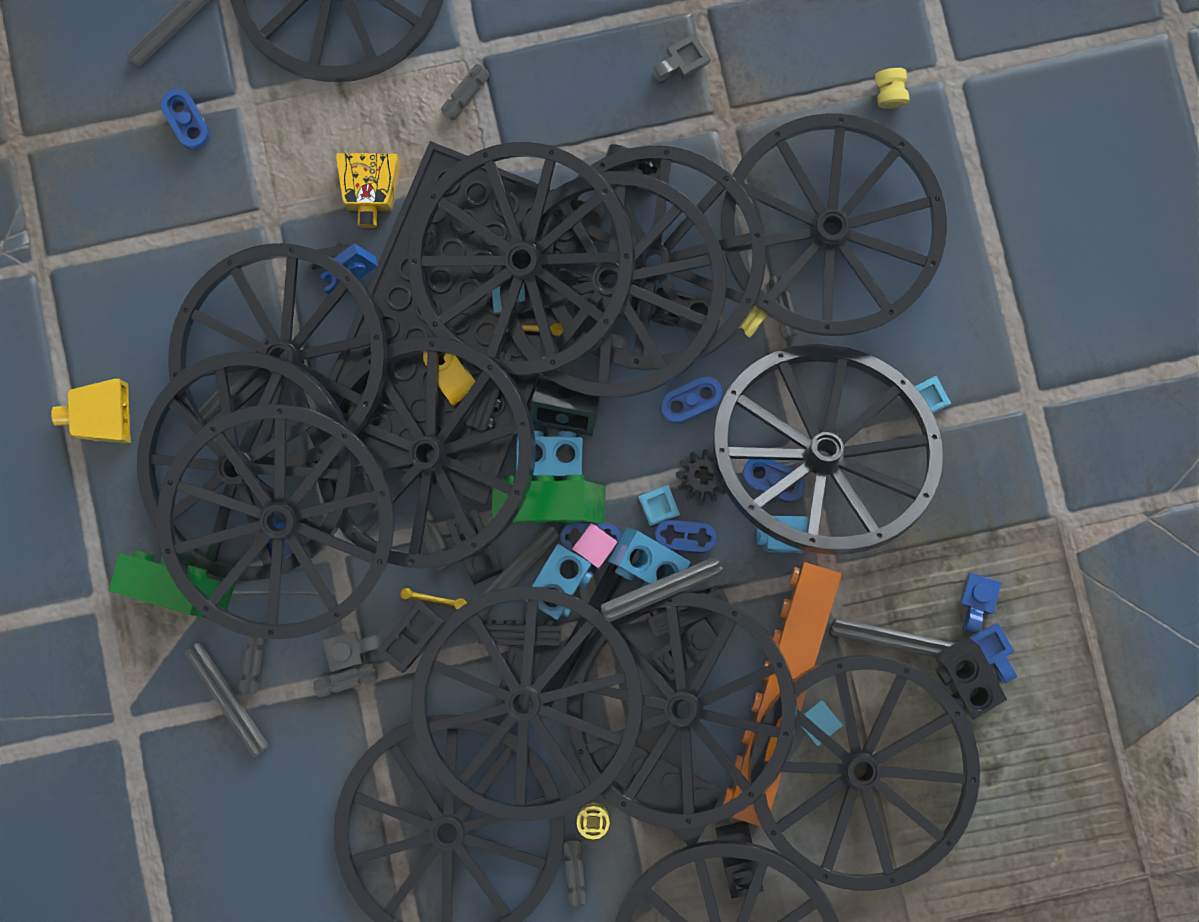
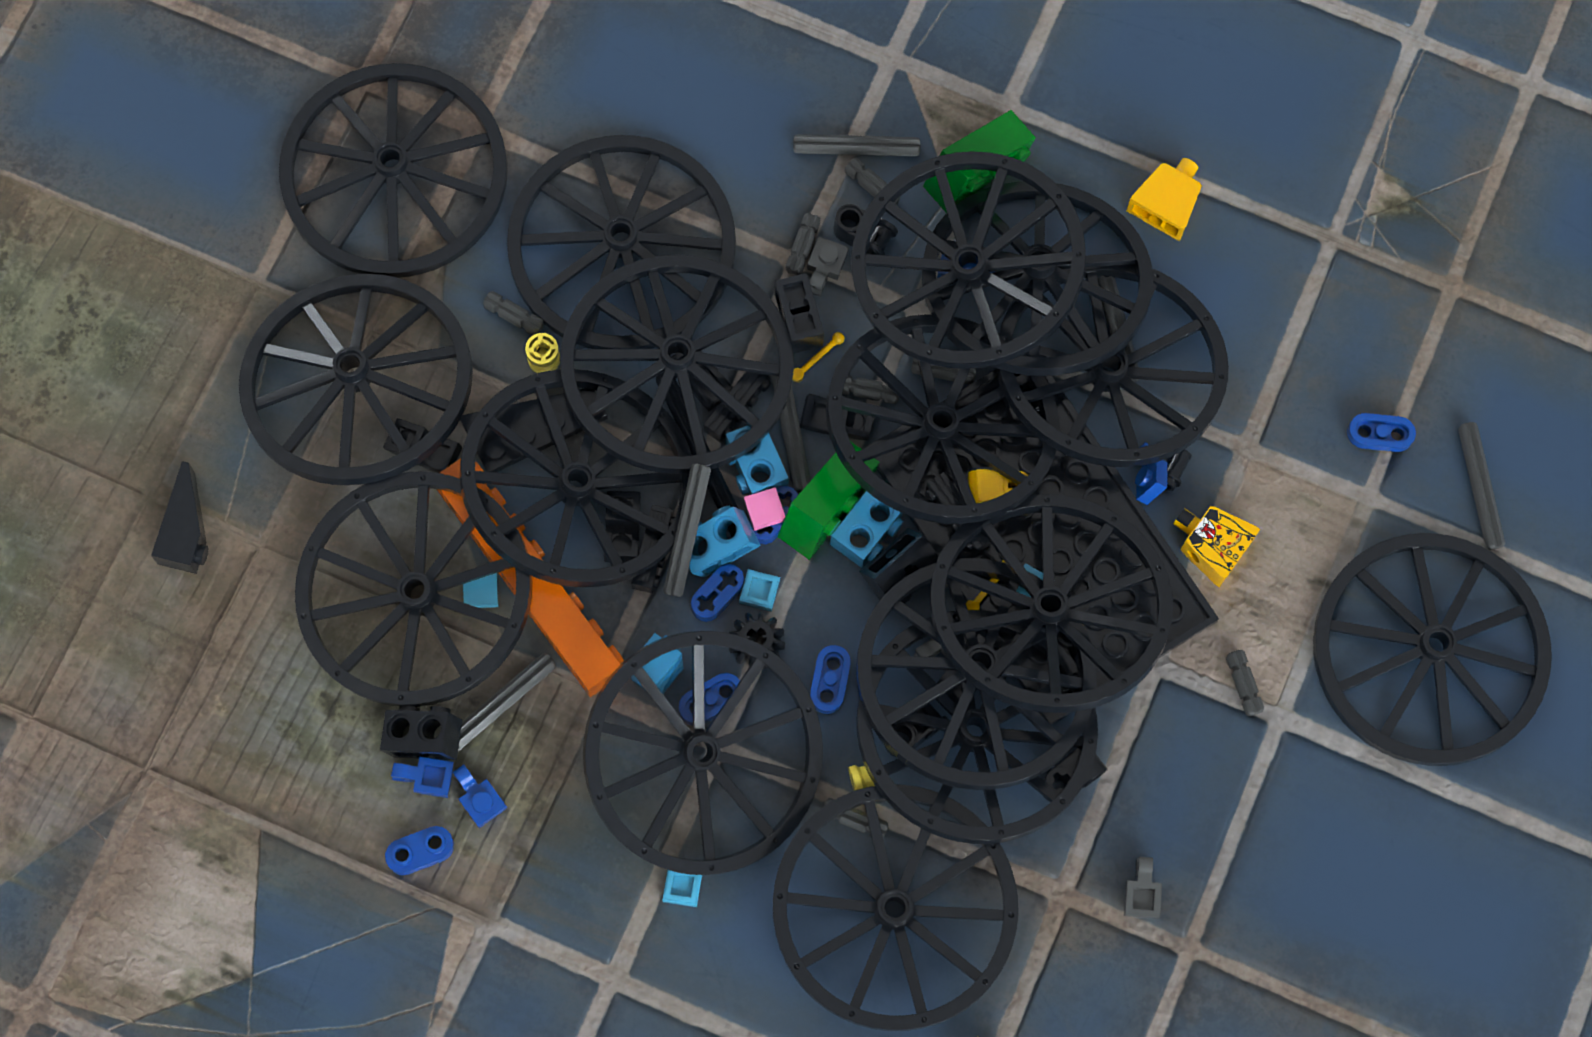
camera: 120 degrees right, 10 degrees down
(293, 644) = (884, 229): none -> black piece
(1051, 615) = (419, 852): none -> blue plate

